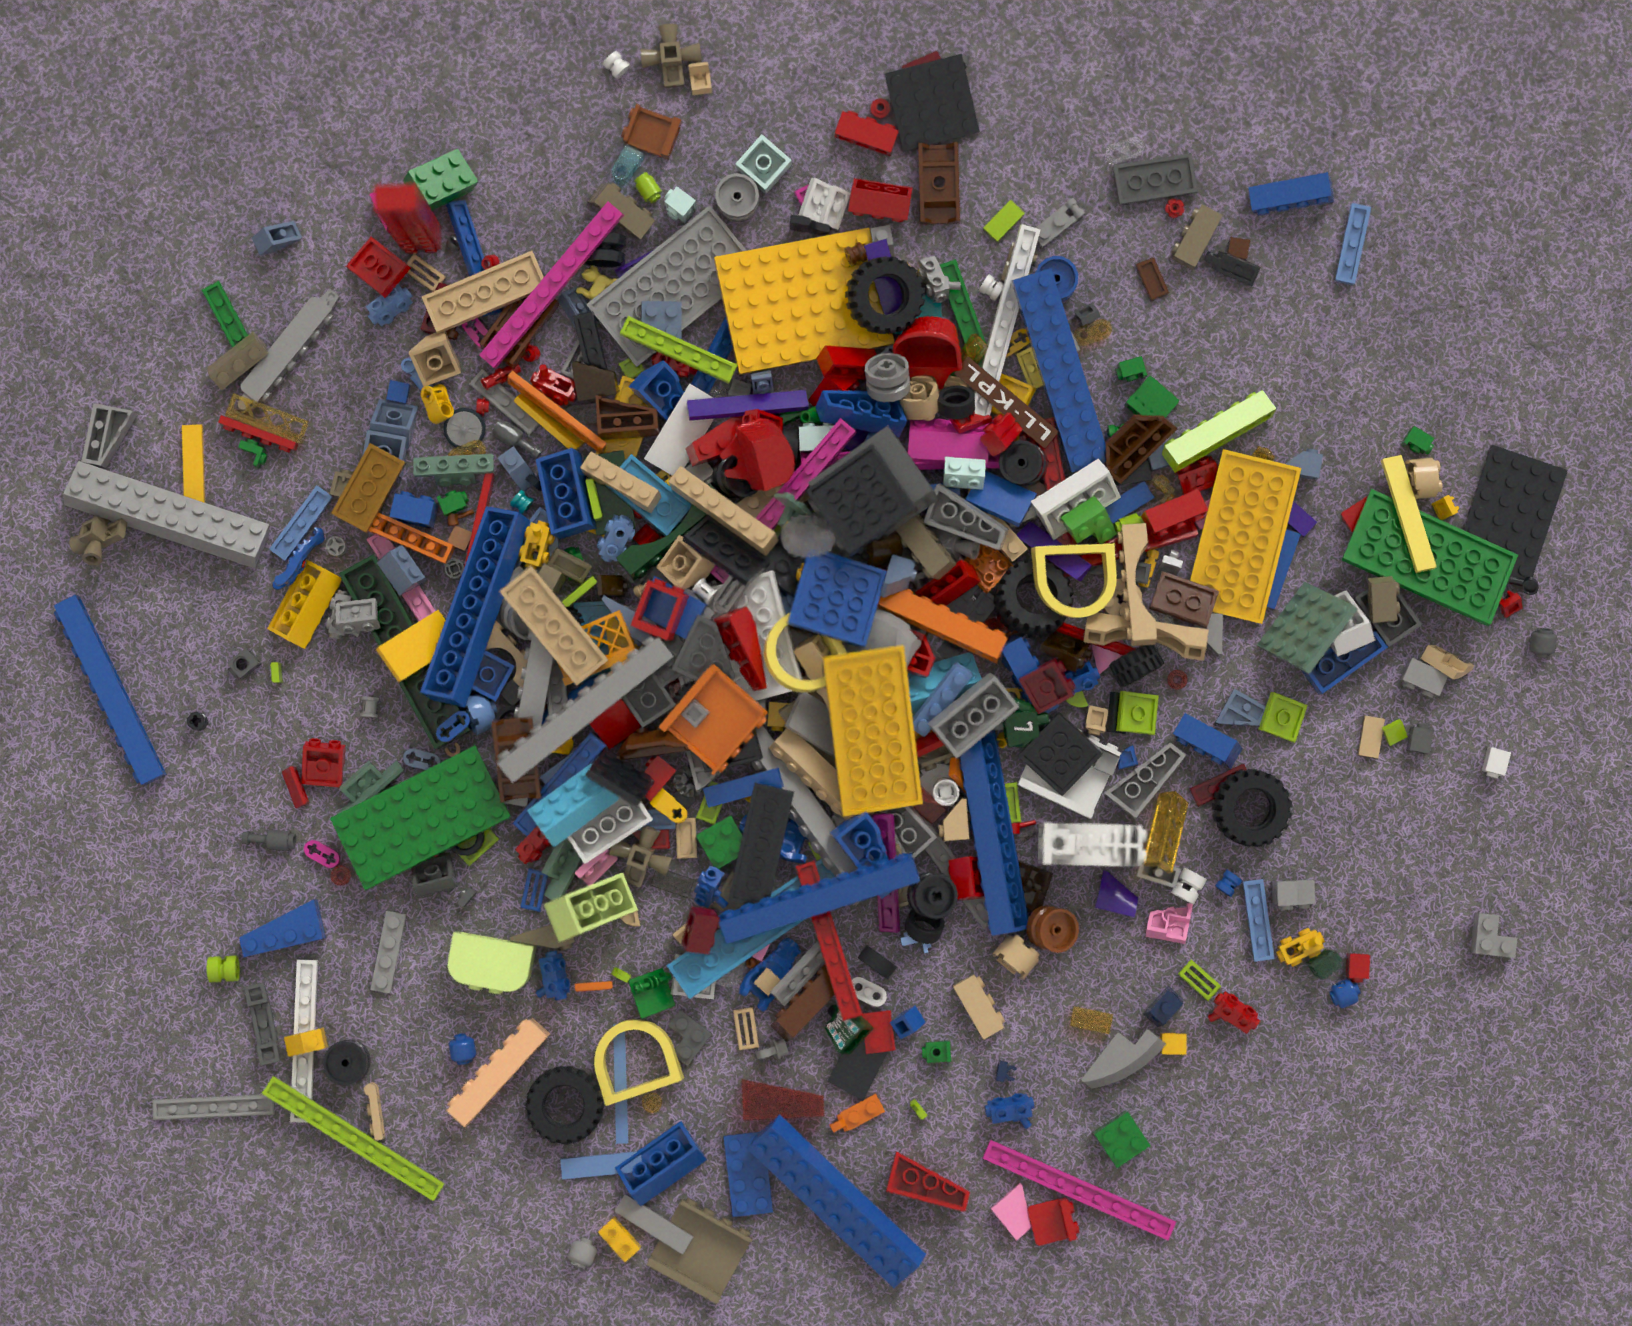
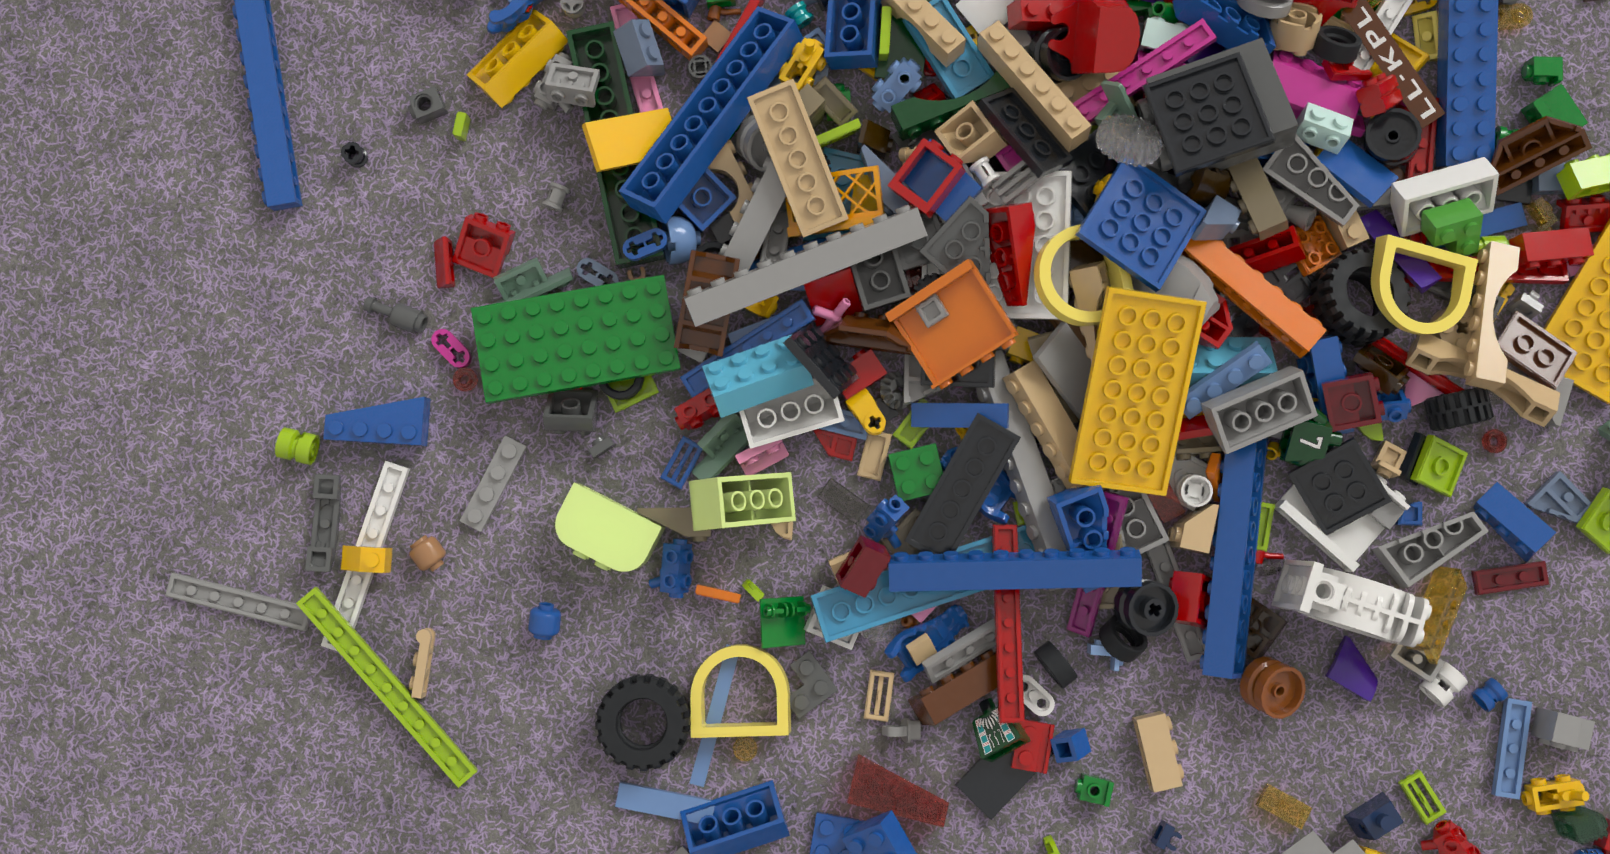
camera: 15 degrees right, 0 degrees up
(353, 1023) = (427, 553): none -> medium nougat head
(358, 1060) = (393, 603): black wheel -> none
(495, 1075) = (577, 661): light nougat brick -> none
(619, 739) = (831, 316): none -> bright pink piece
(641, 856) = (817, 460): dark tan brick -> none
(858, 1114) = (980, 834): orange hinge -> none
(1016, 956) = (1220, 706): tan brick -> none
(1170, 924) = (1406, 722): bright pink slope -> none
(1278, 808) = (1575, 622): black tyre -> none

